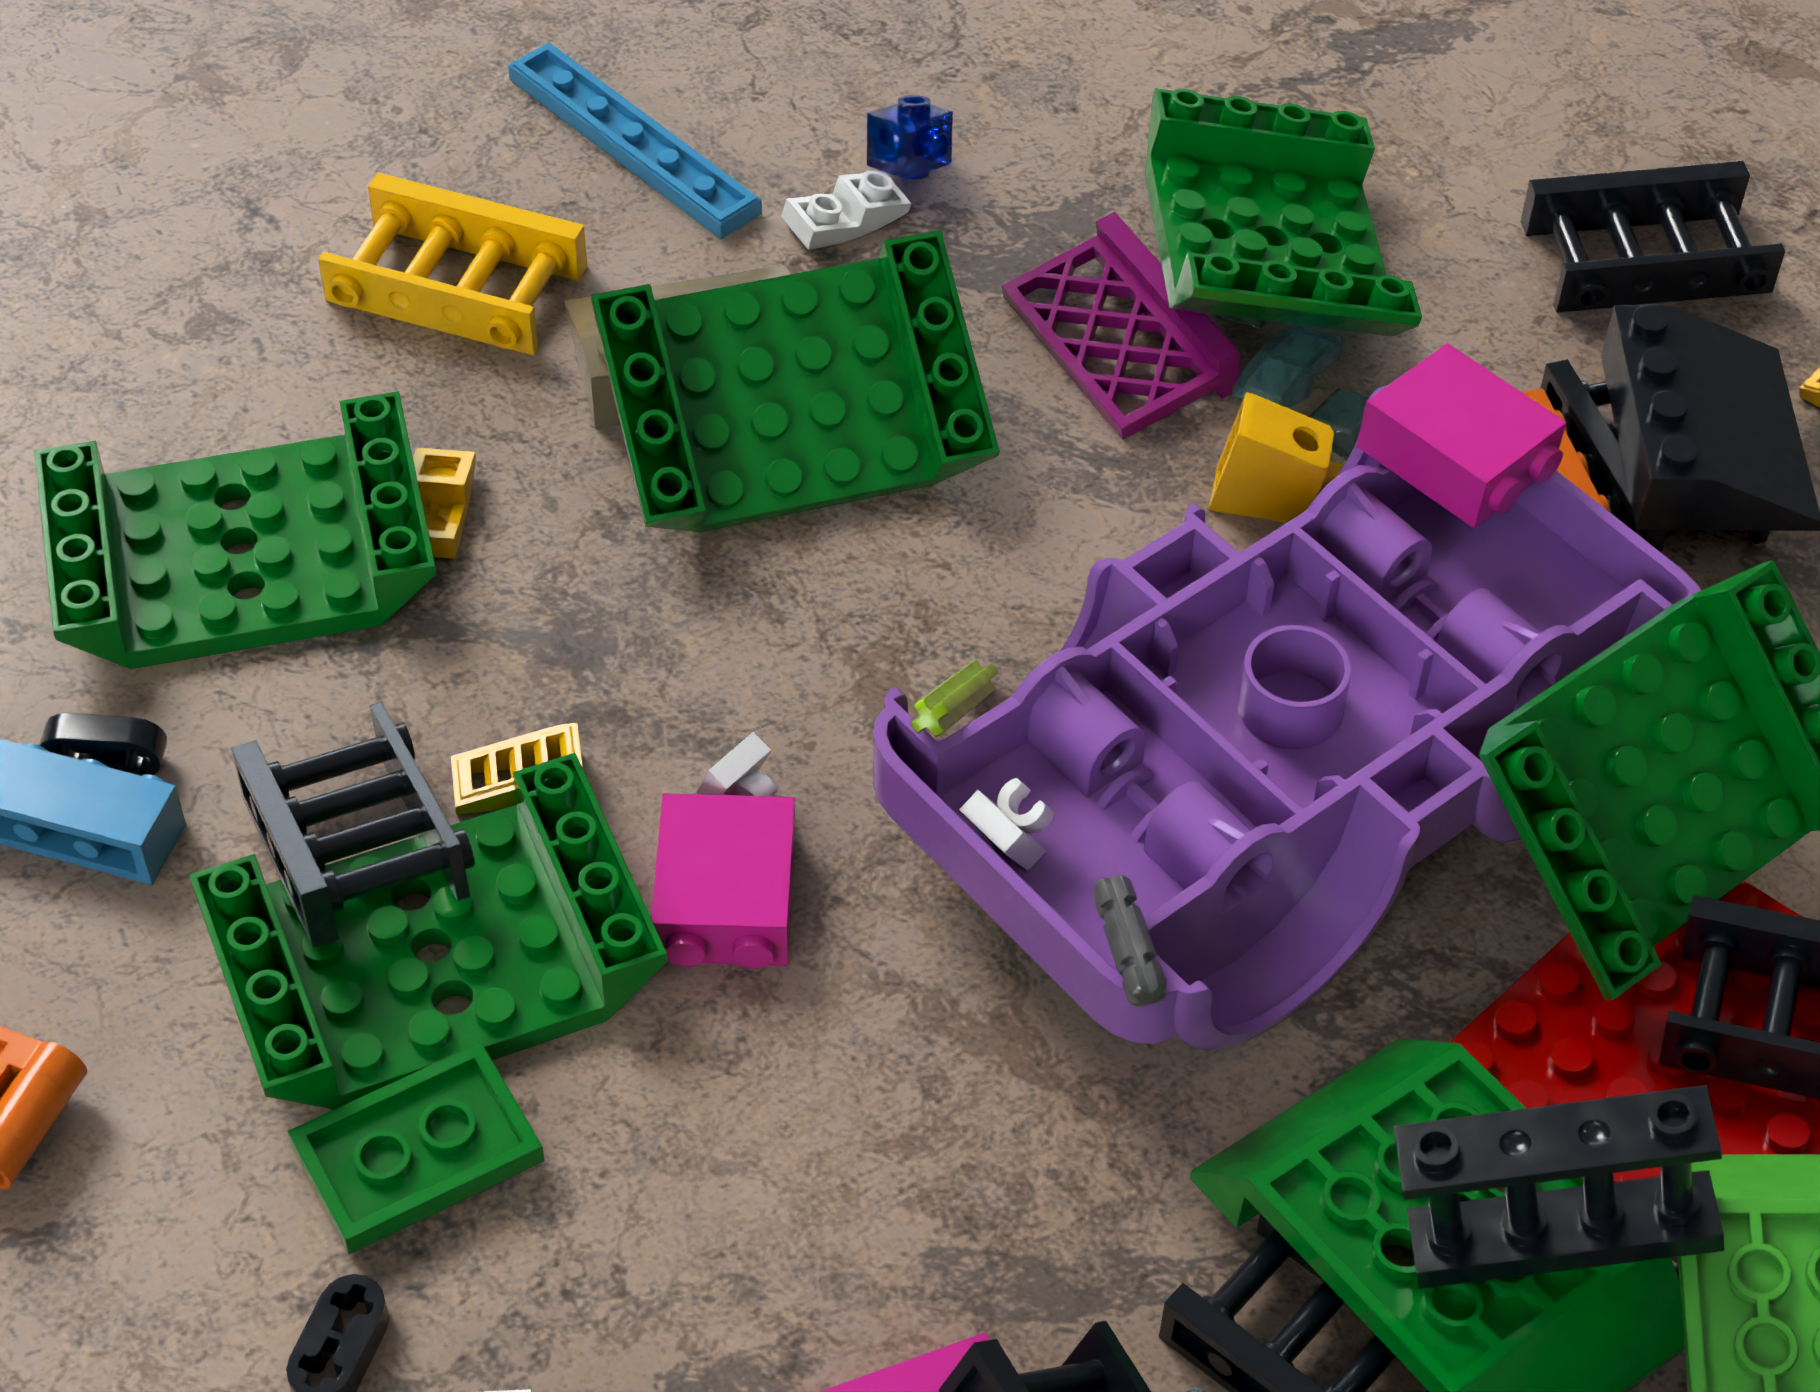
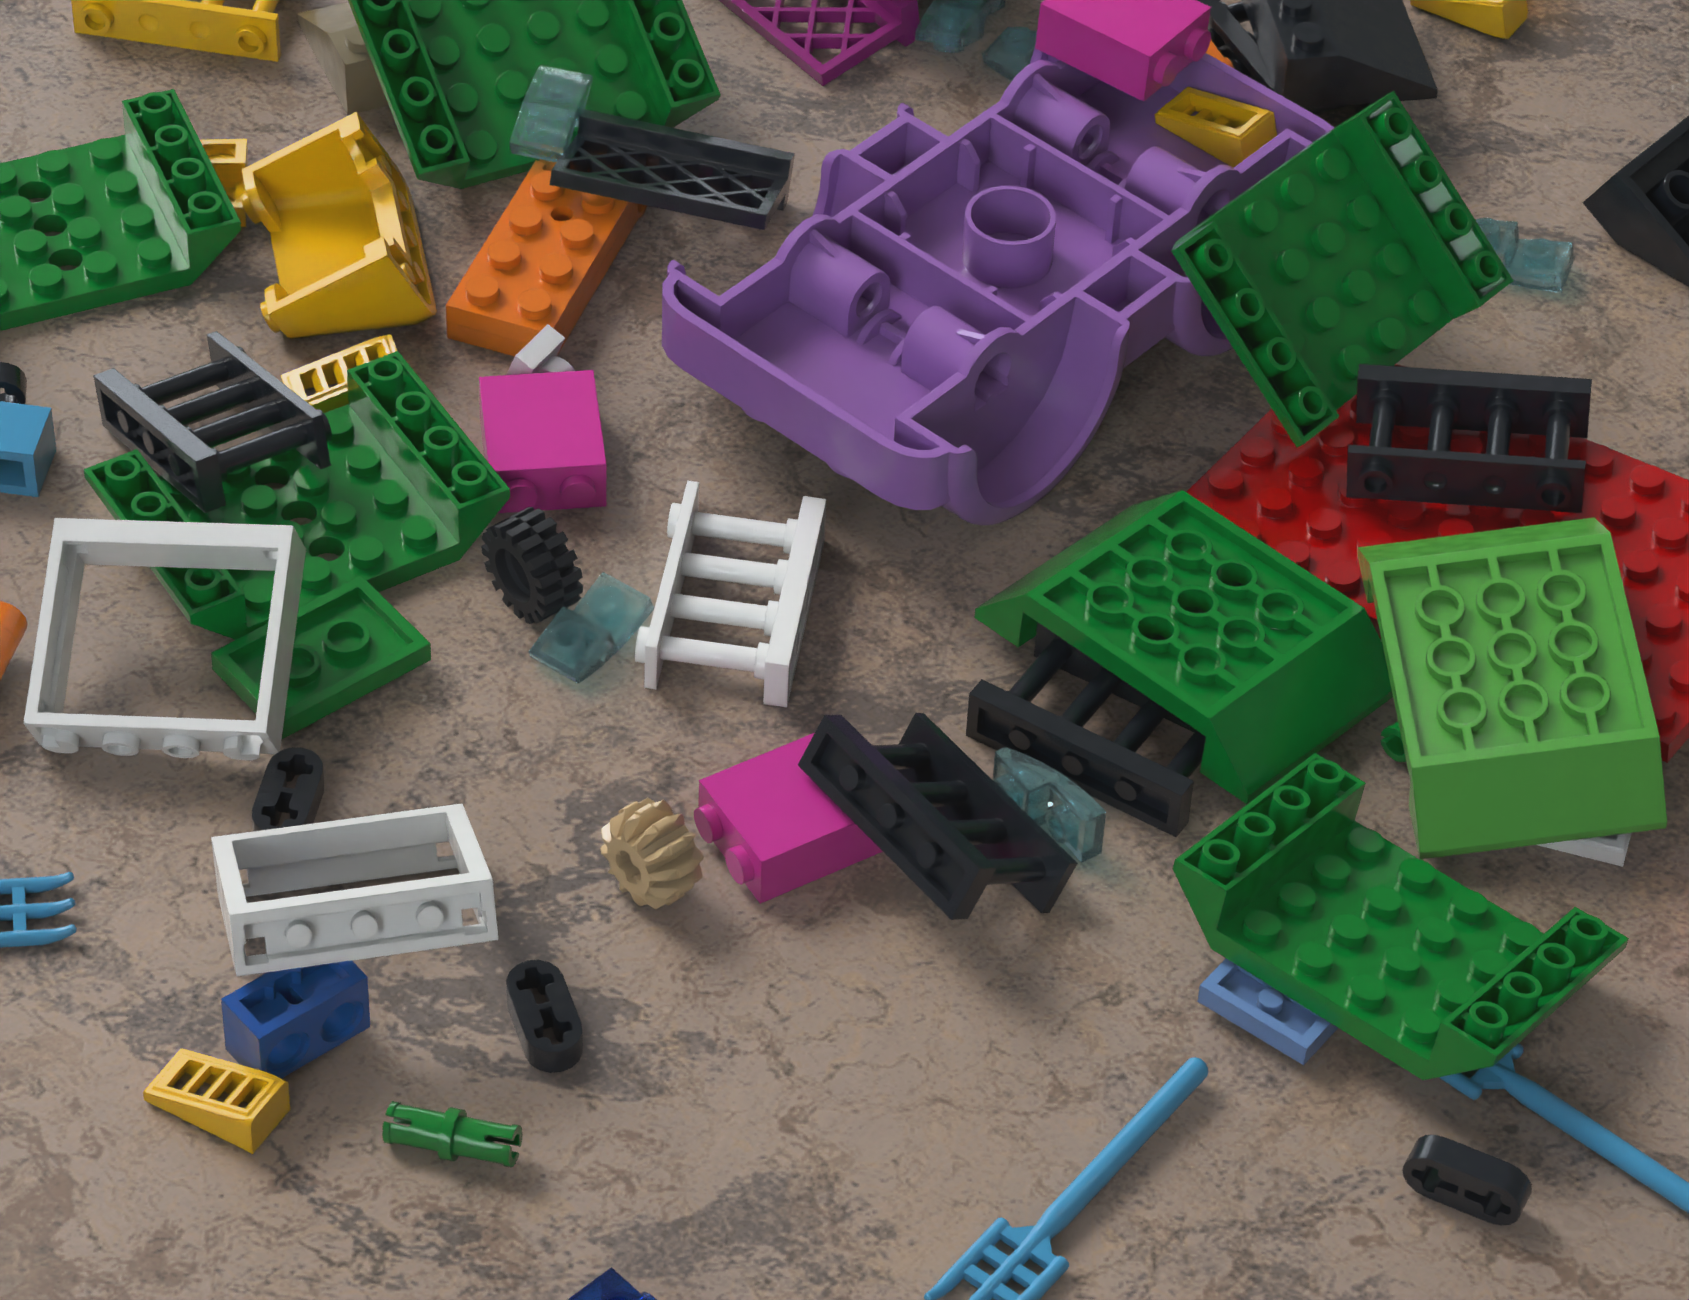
camera: 10 degrees left, 5 degrees down
(109, 1089) = (162, 545): none -> white window
(553, 589) = (339, 235): none -> yellow windscreen
(677, 1056) = (532, 565): none -> black tyre
(739, 1144) = (592, 633): none -> clear light blue slope
(775, 630) = (538, 264): none -> orange hinge
(803, 460) = (550, 113): none -> clear light blue slope
(924, 520) = (675, 170): none -> black fence
(954, 698) = (720, 272): lime axle -> none
(959, 1157) = (780, 619): none -> white fence
(1004, 824) = (785, 354): white tile -> none
(1129, 941) = (905, 417): flat silver axle -> none
(1272, 462) = (958, 79): yellow torso -> none
(1566, 1226) = (1287, 590): black fence -> none
(1598, 569) = (1221, 126): none -> yellow slope

